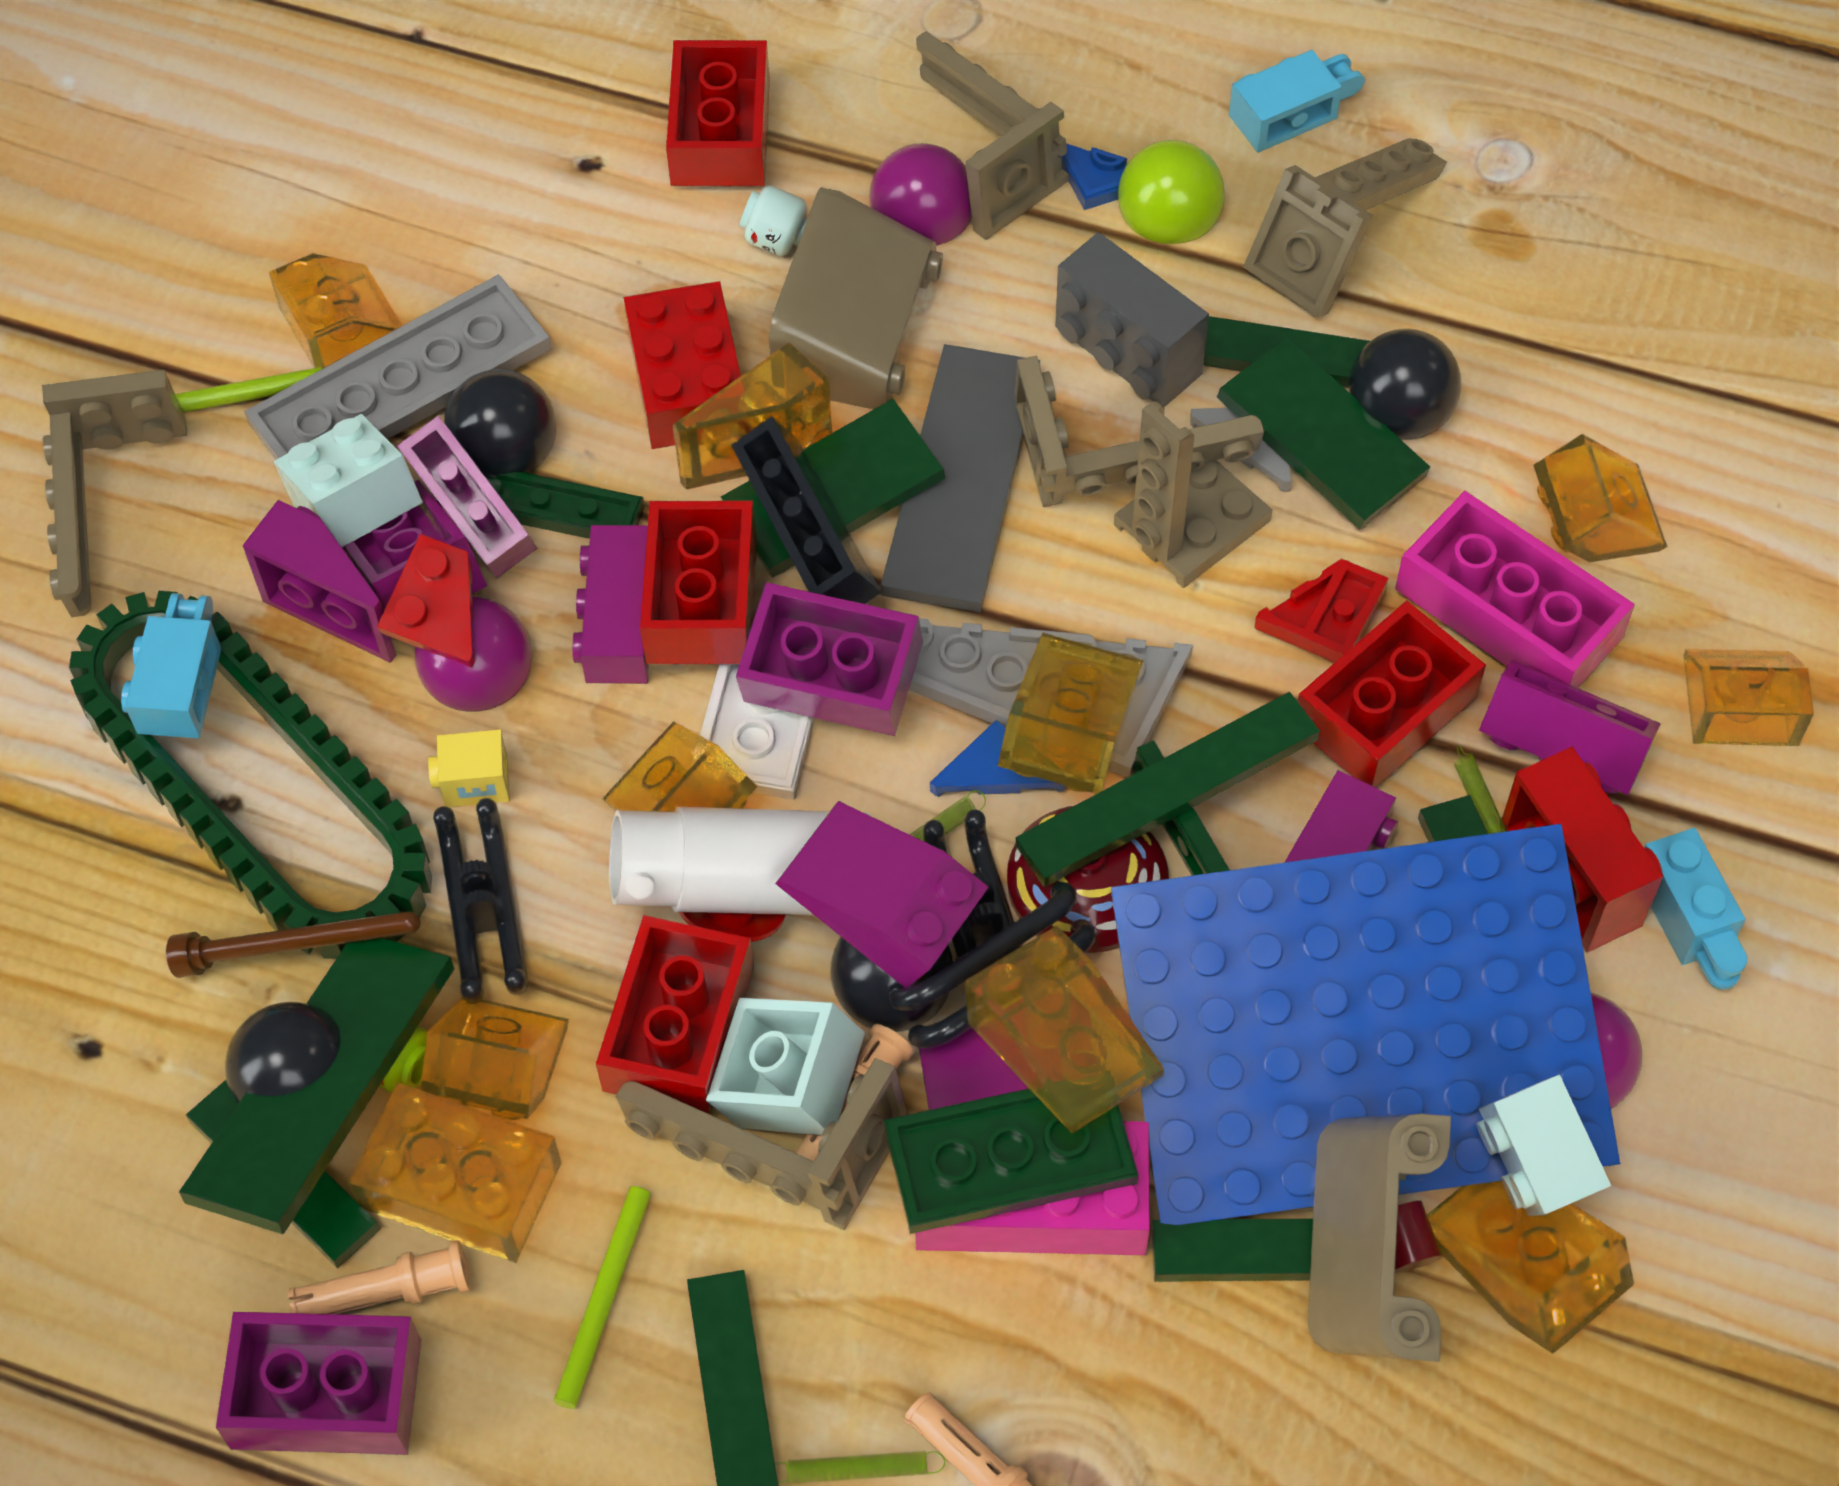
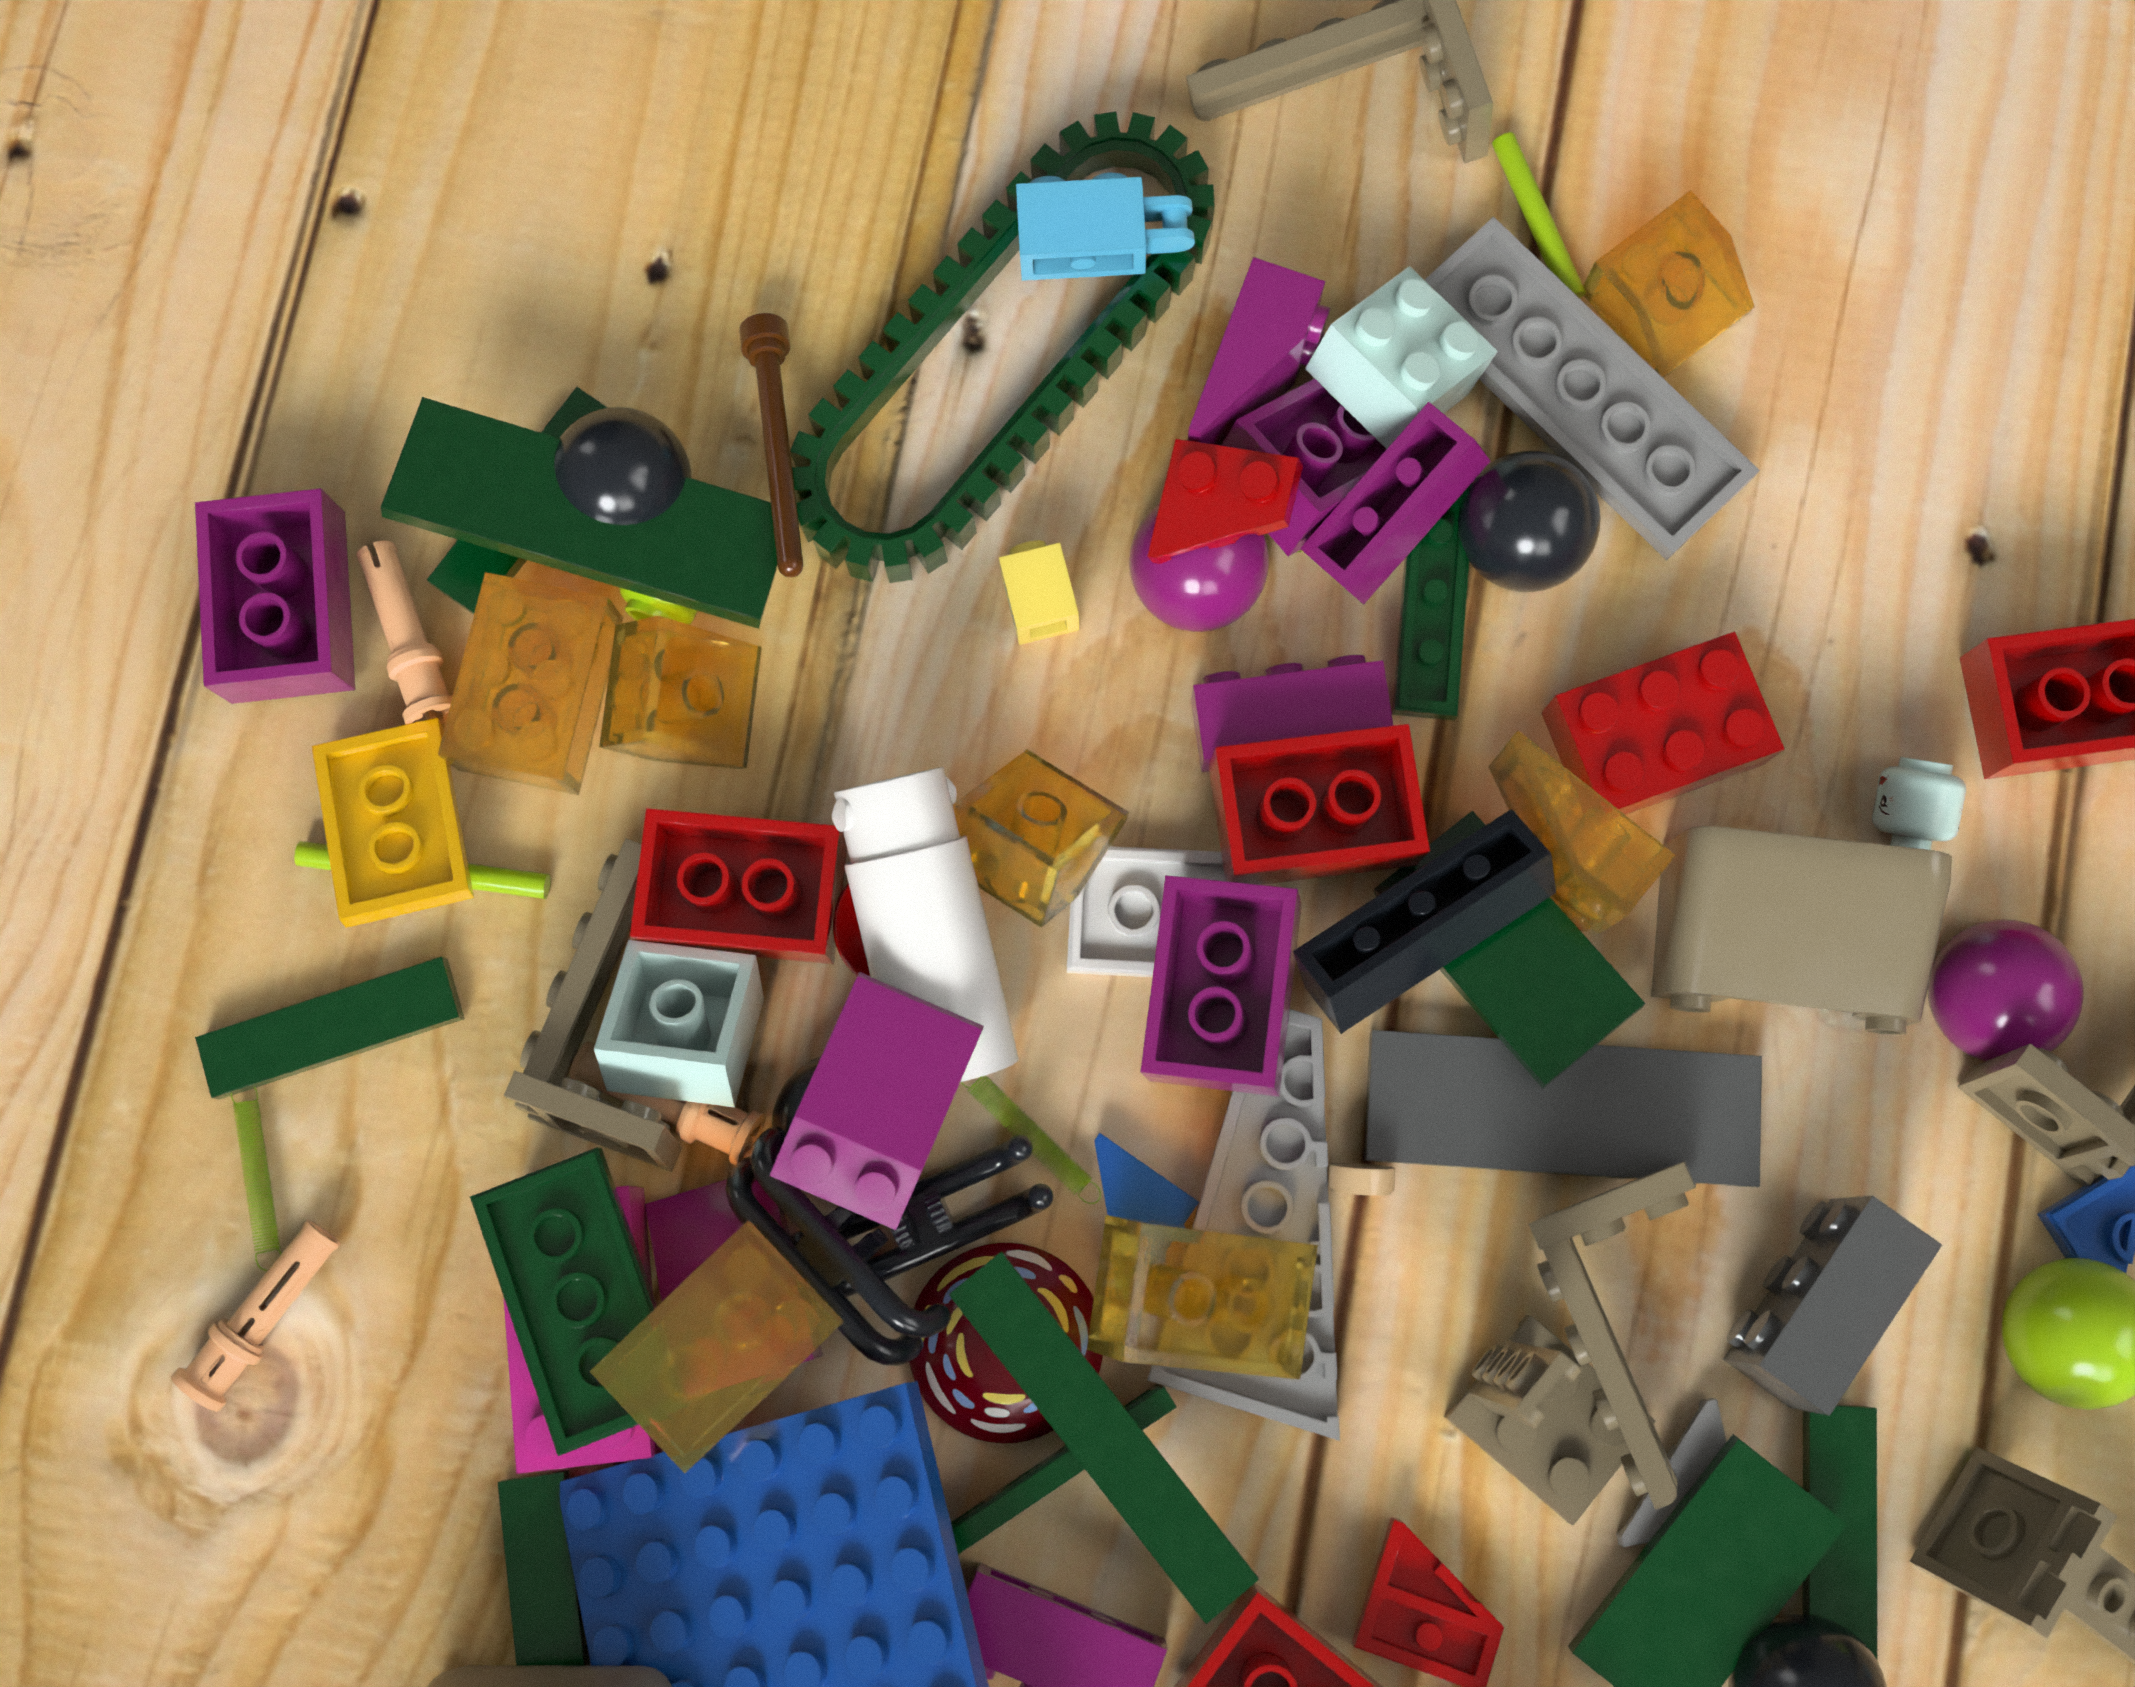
camera: 85 degrees right, 20 degrees up
(481, 900) = (865, 644): black piece -> none
(556, 1302) = (391, 823): none -> yellow plate
(995, 606) = (1361, 1179): none -> tan tile

